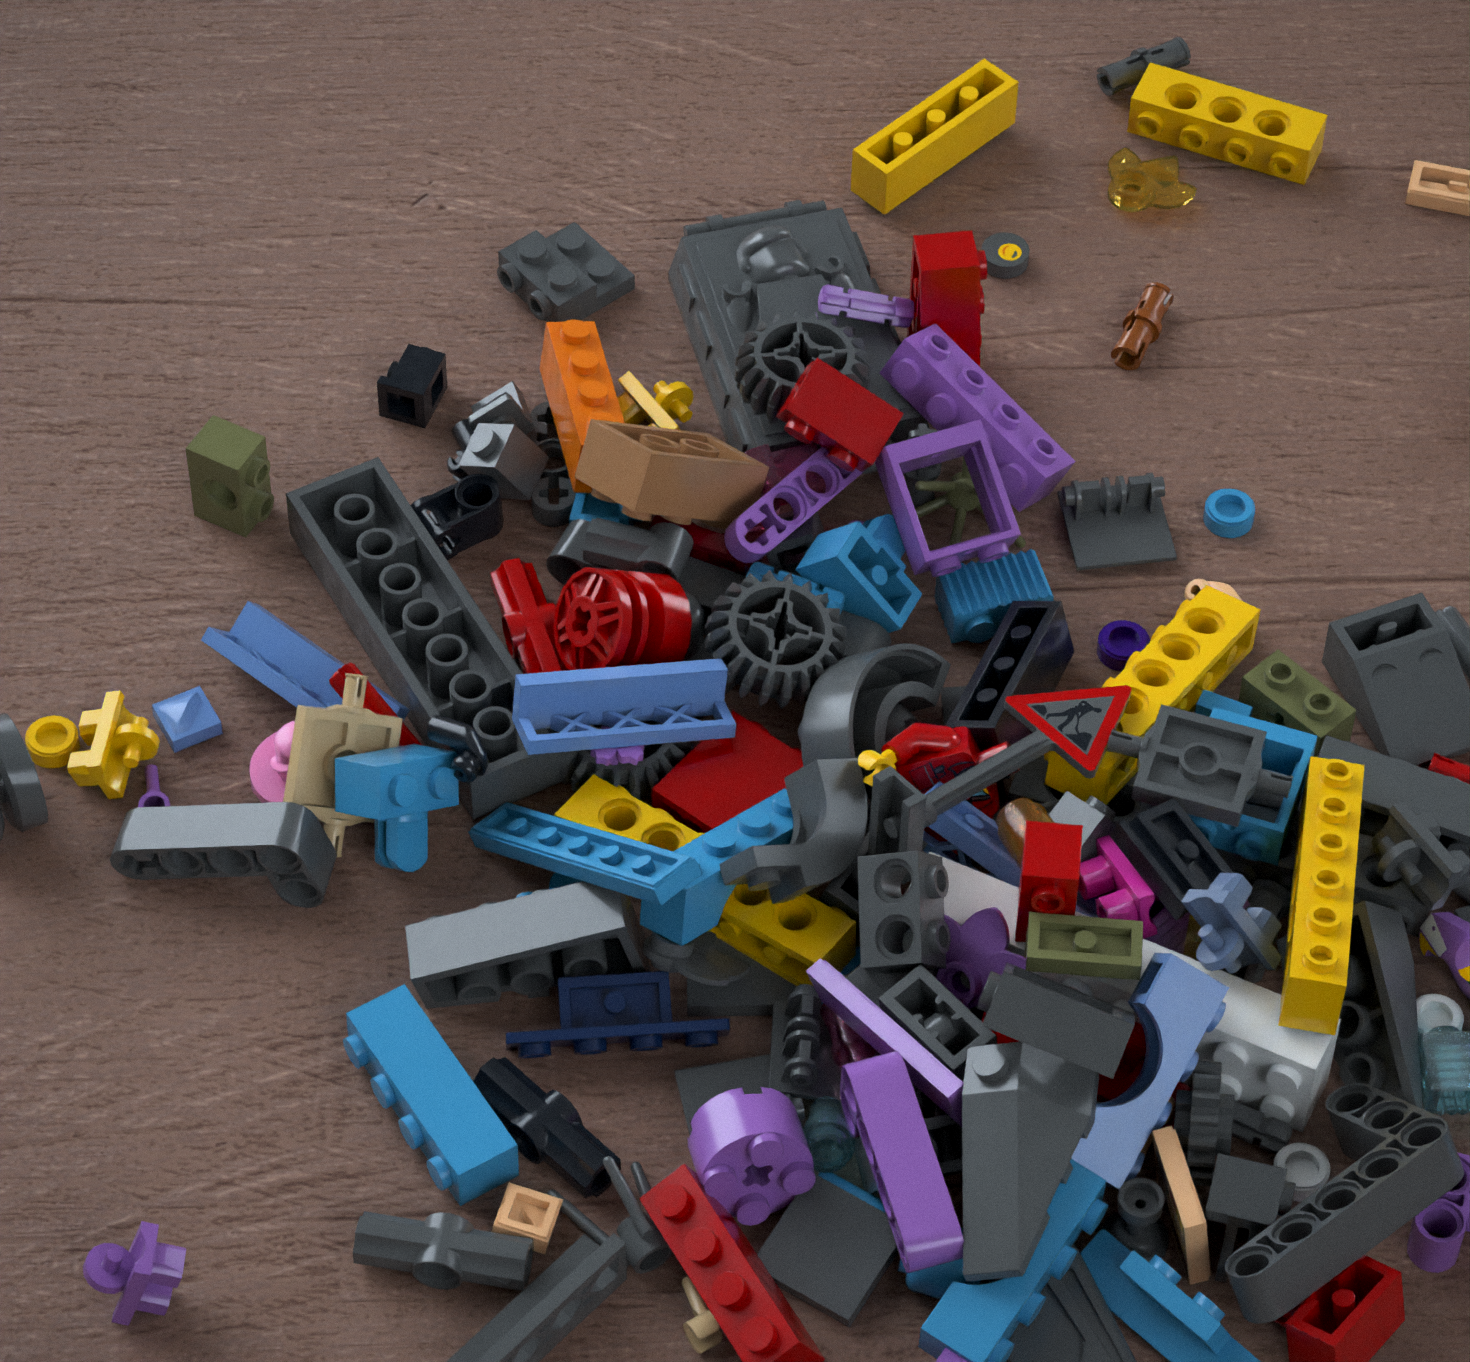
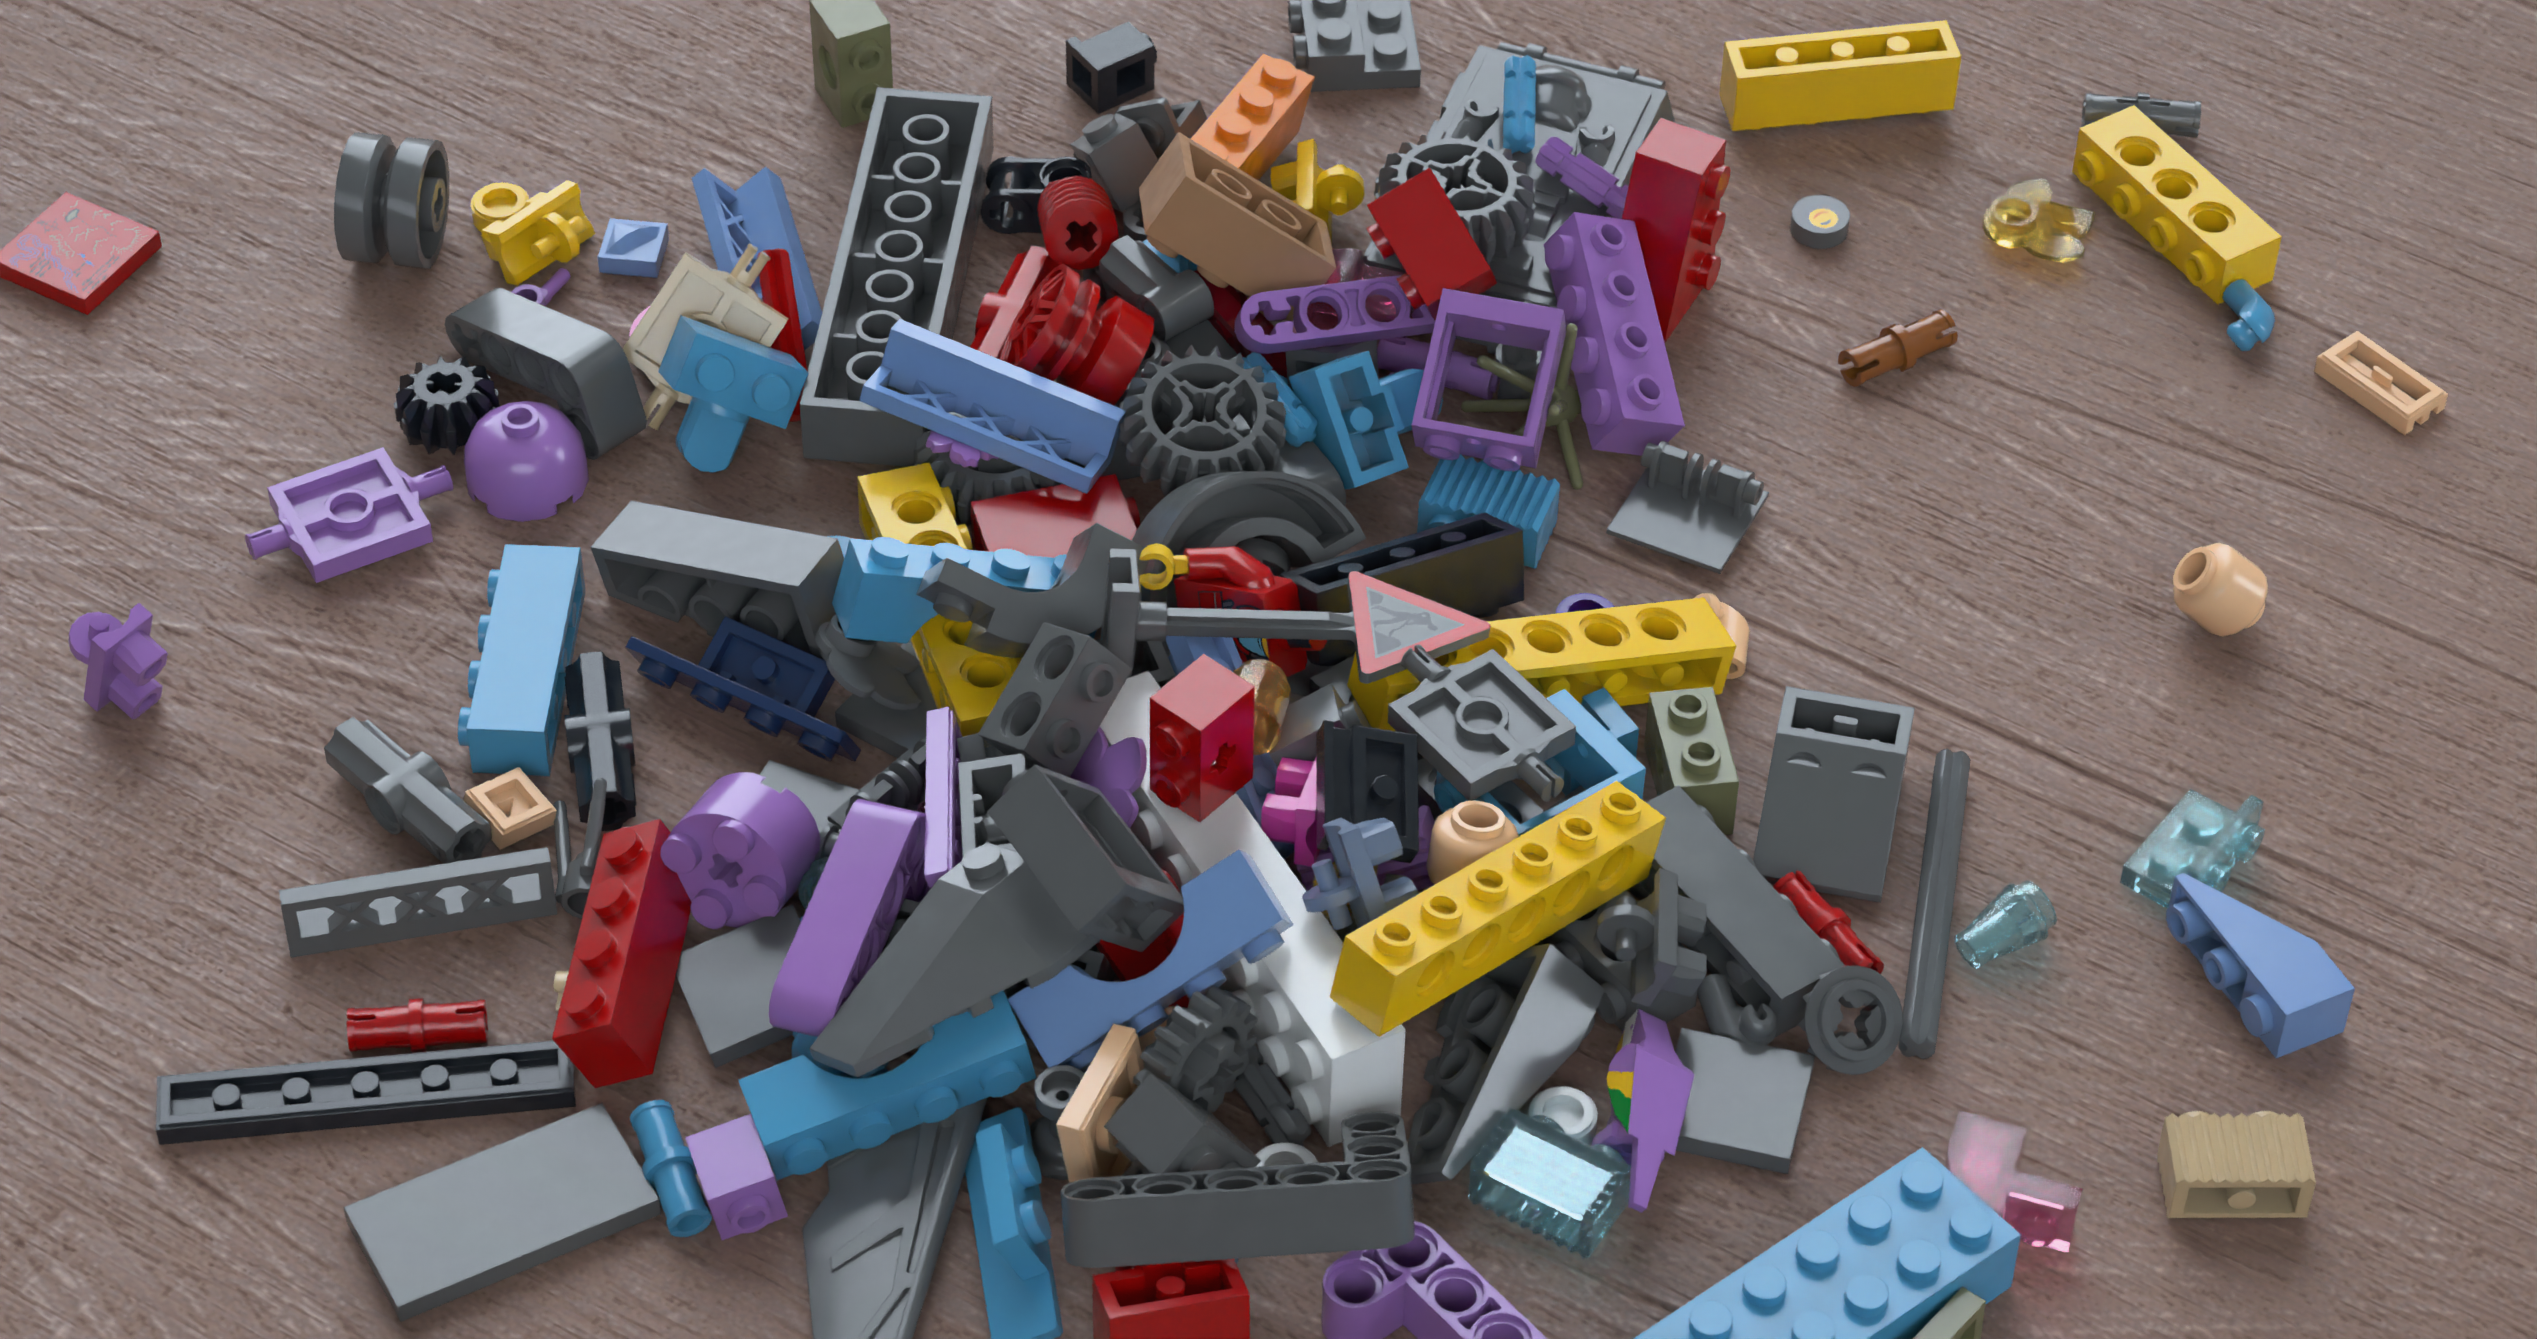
camera: 35 degrees right, 5 degrees down
(176, 925) = (443, 403): none -> black gear
(183, 1055) = (350, 514): none -> medium lavender plate
(275, 938) = (525, 461): none -> medium lavender cylinder
(471, 757) = (816, 364): black arm -> none
(527, 525) = (1077, 222): none -> red piece
(585, 853) = (828, 509): dark azure tile -> none
(772, 271) = (1519, 104): none -> dark azure axle
(855, 503) = (1463, 372): none -> medium lavender pin
(1084, 946) = (1181, 810): olive panel -> none
(1229, 513) = (1820, 559): dark azure tile -> none
(1266, 859) = (1466, 836): none -> light nougat head
(1348, 187) = (2254, 313): none -> dark azure arm

